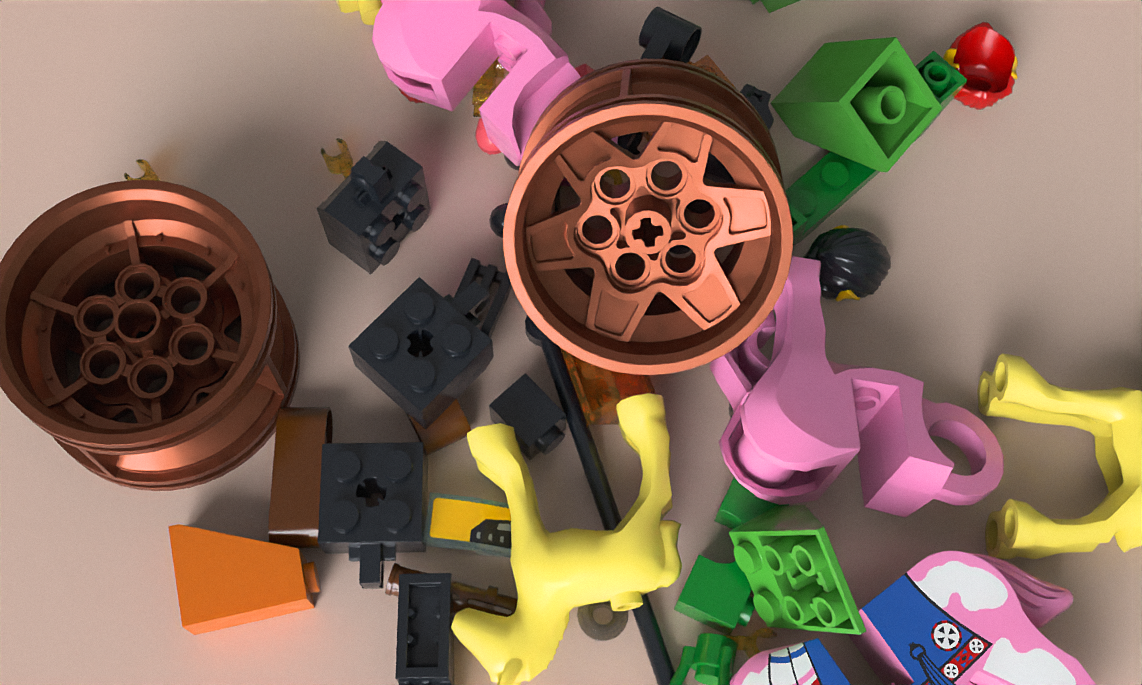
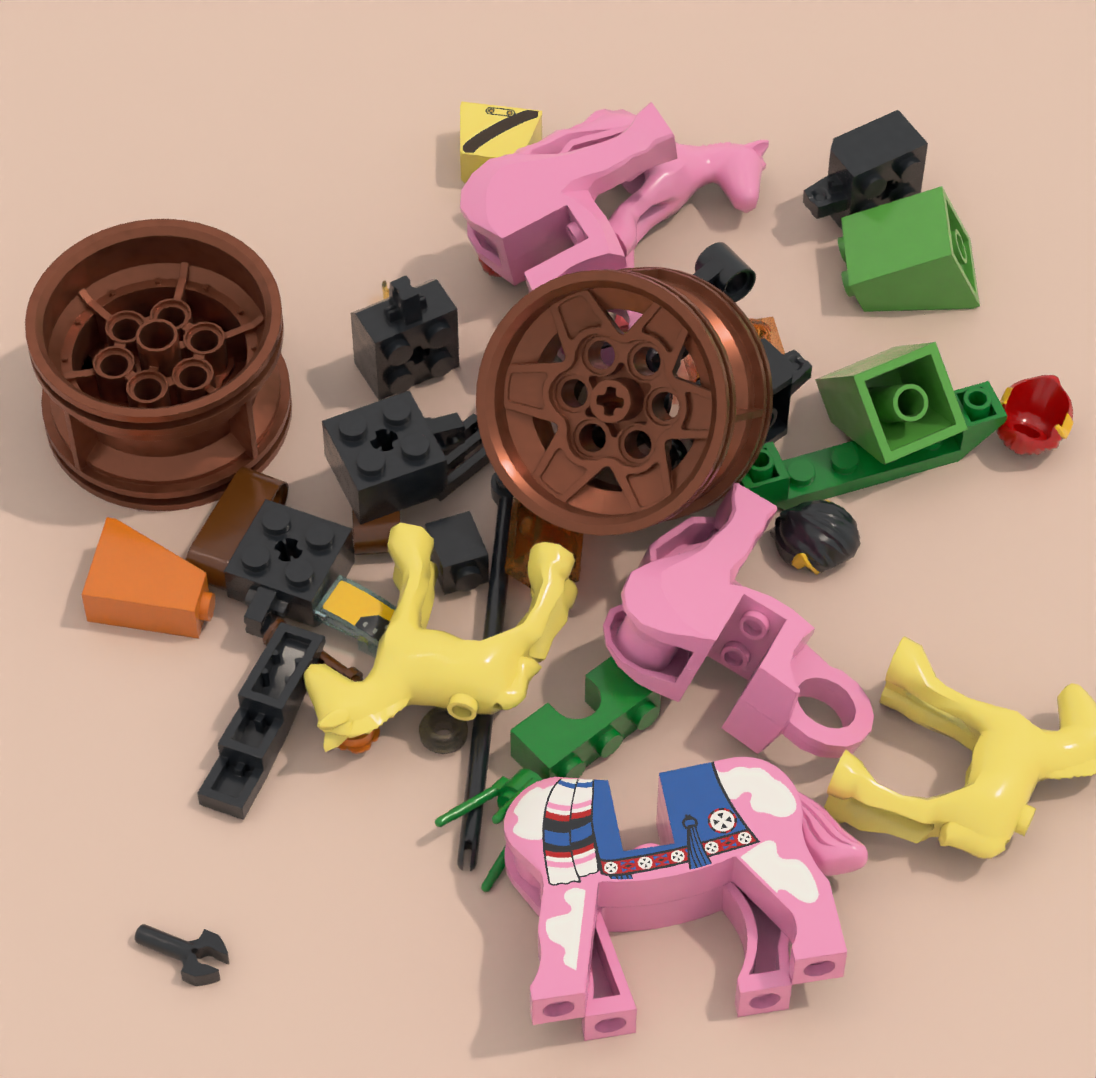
camera: 25 degrees right, 15 degrees down
(795, 572) = (616, 725): bright green slope -> none

